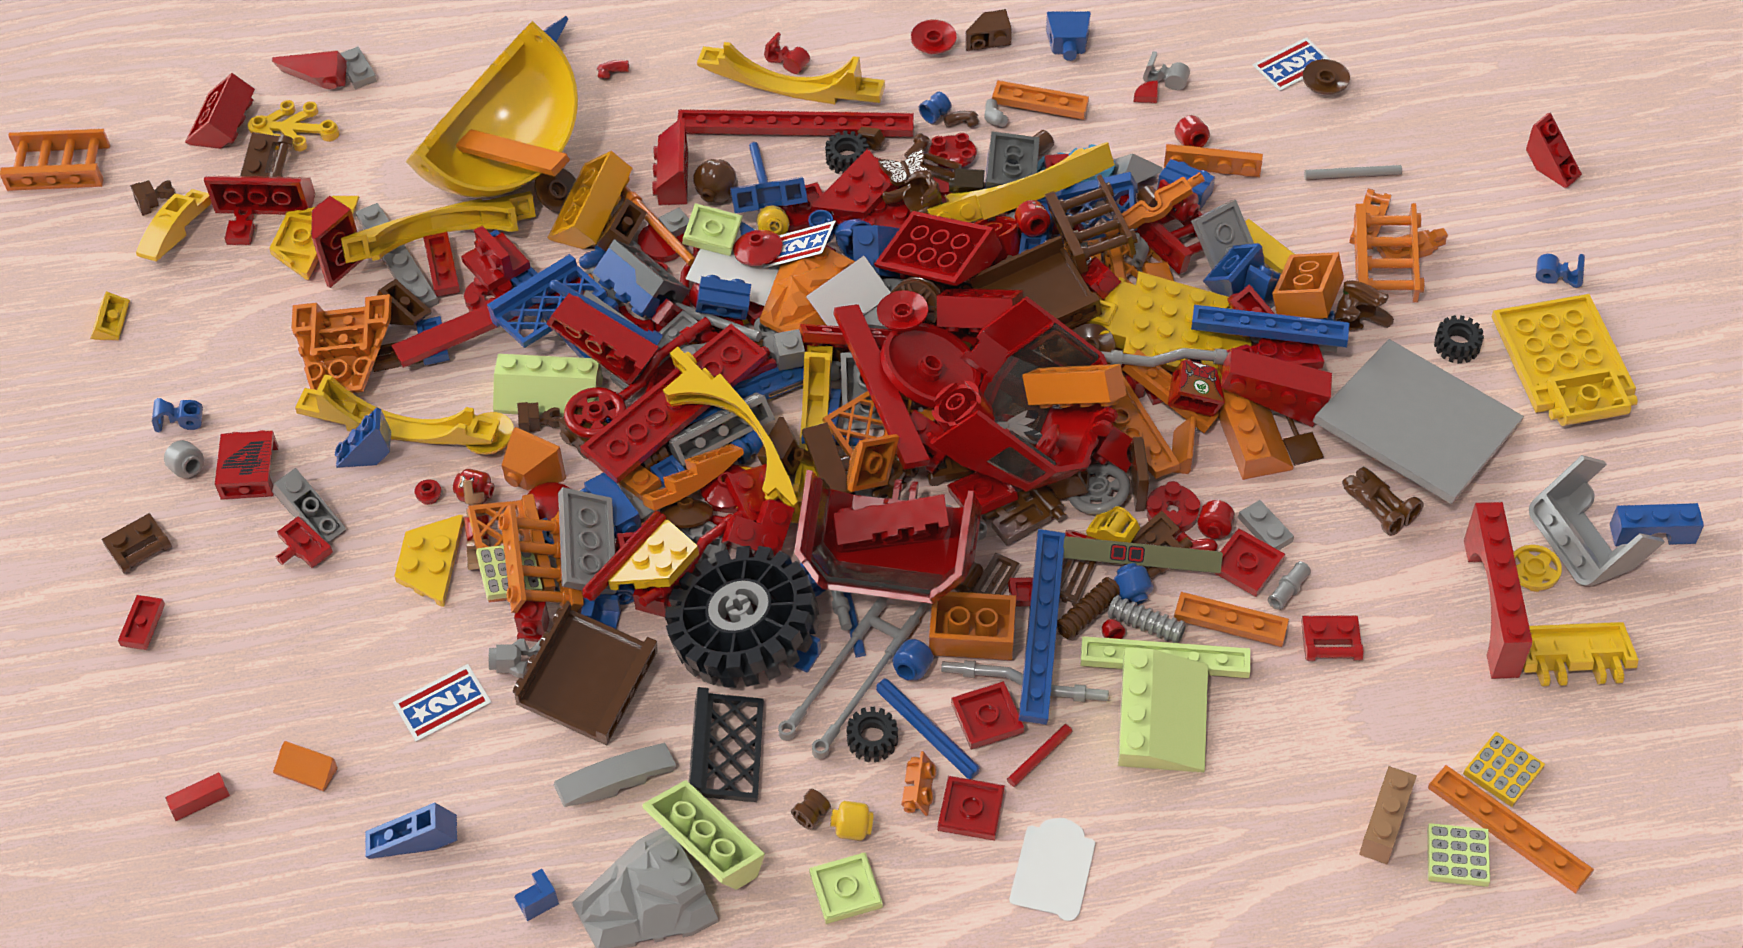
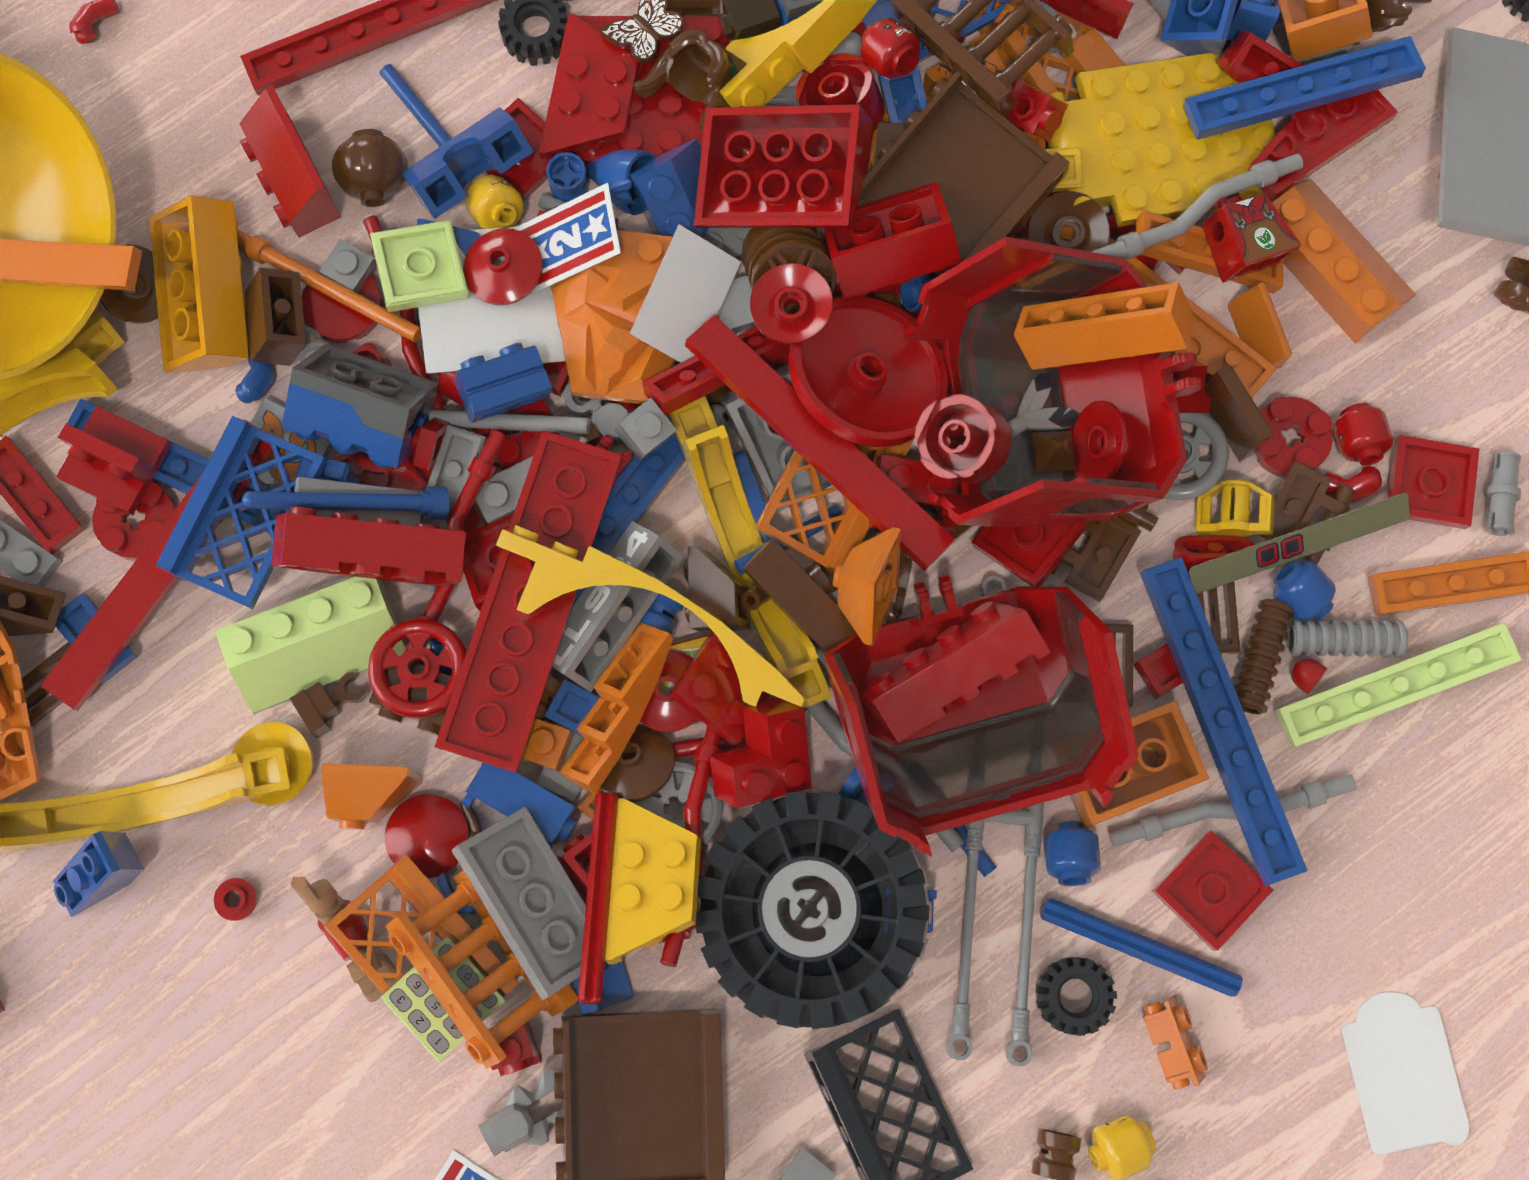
camera: 30 degrees left, 25 degrees up
(302, 543) = (99, 1078): red plate -> none
(304, 502) = (73, 1015): light grey slope -> none
(429, 558) = (301, 1008): yellow wing -> none
(481, 483) = (300, 859): red head -> none
(971, 808) = (1258, 1040): red tile -> none
(1039, 755) = (1306, 915): red bar -> none
(1162, 711) = (1439, 781): yellowish green slope -> none
(1265, 525) = (1425, 409): light grey plate -> none
(1277, 384) = (1363, 184): red wedge -> none
(1302, 447) = (1410, 254): reddish brown piece -> none

